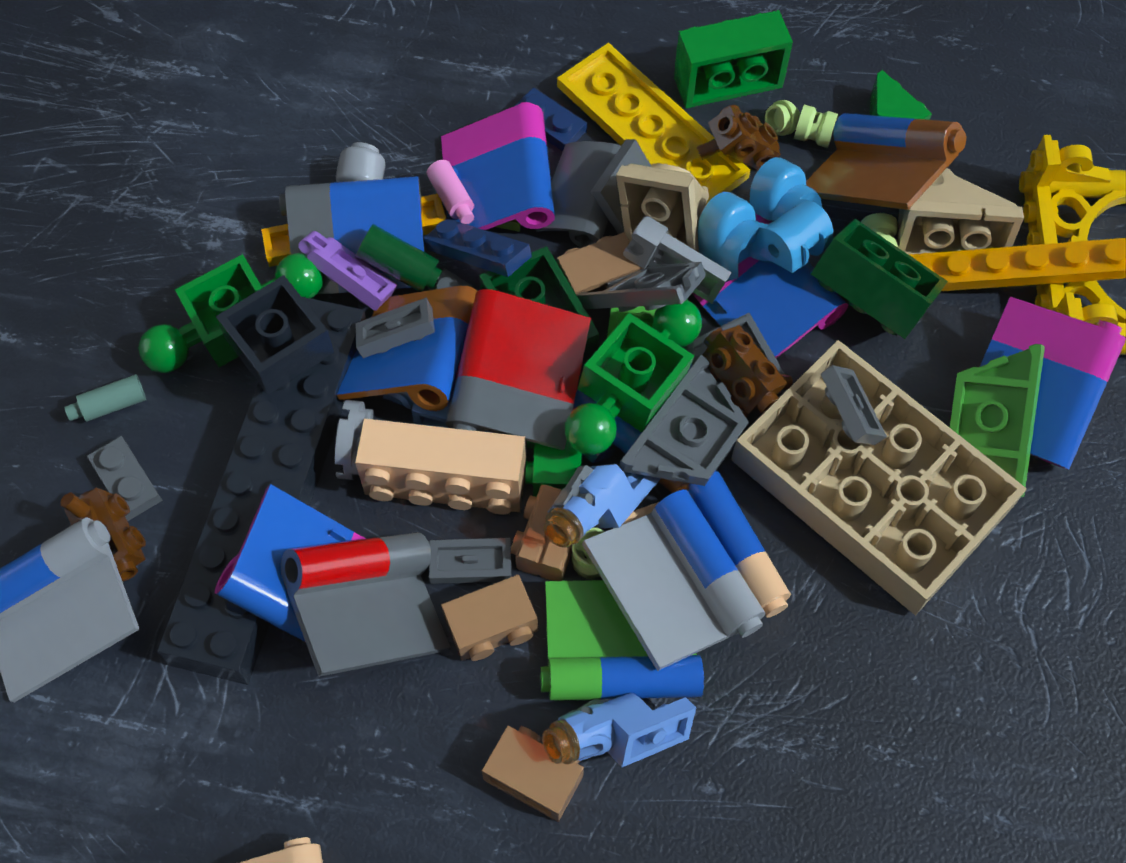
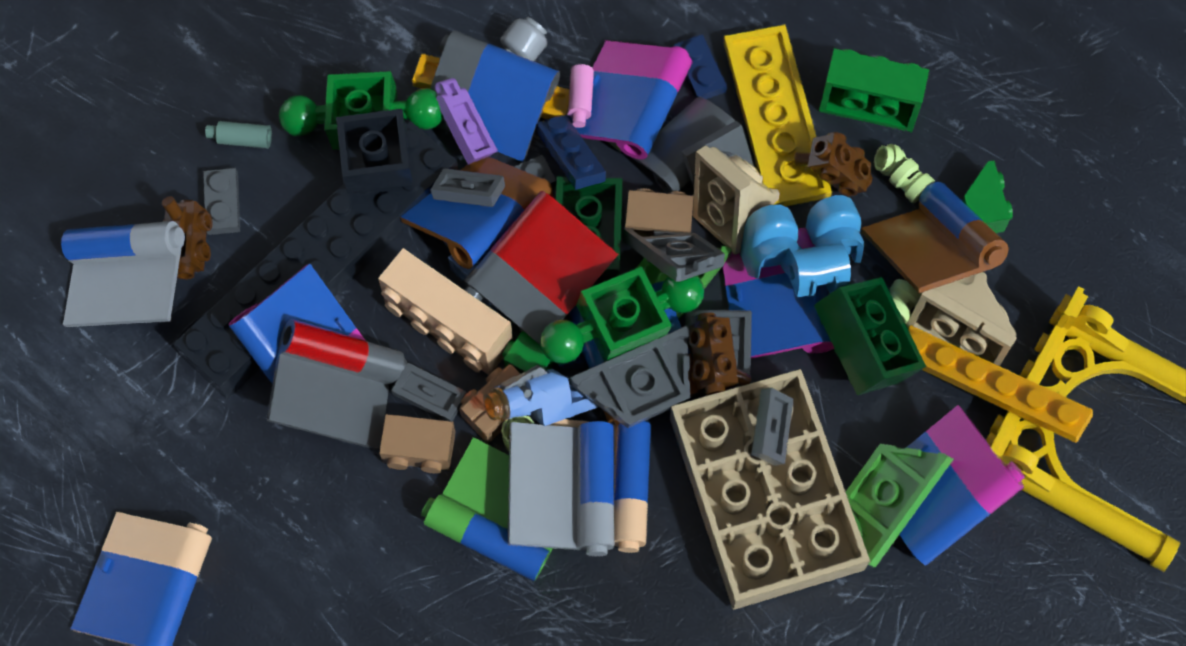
camera: 30 degrees right, 5 degrees up
(348, 438) = (389, 250): light grey plate -> none
(398, 259) = (507, 131): dark green brick -> none
(528, 774) = (383, 568): medium nougat brick -> none
(620, 727) = (459, 571): medium blue plate -> none
(654, 247) = (704, 220): light grey plate -> none

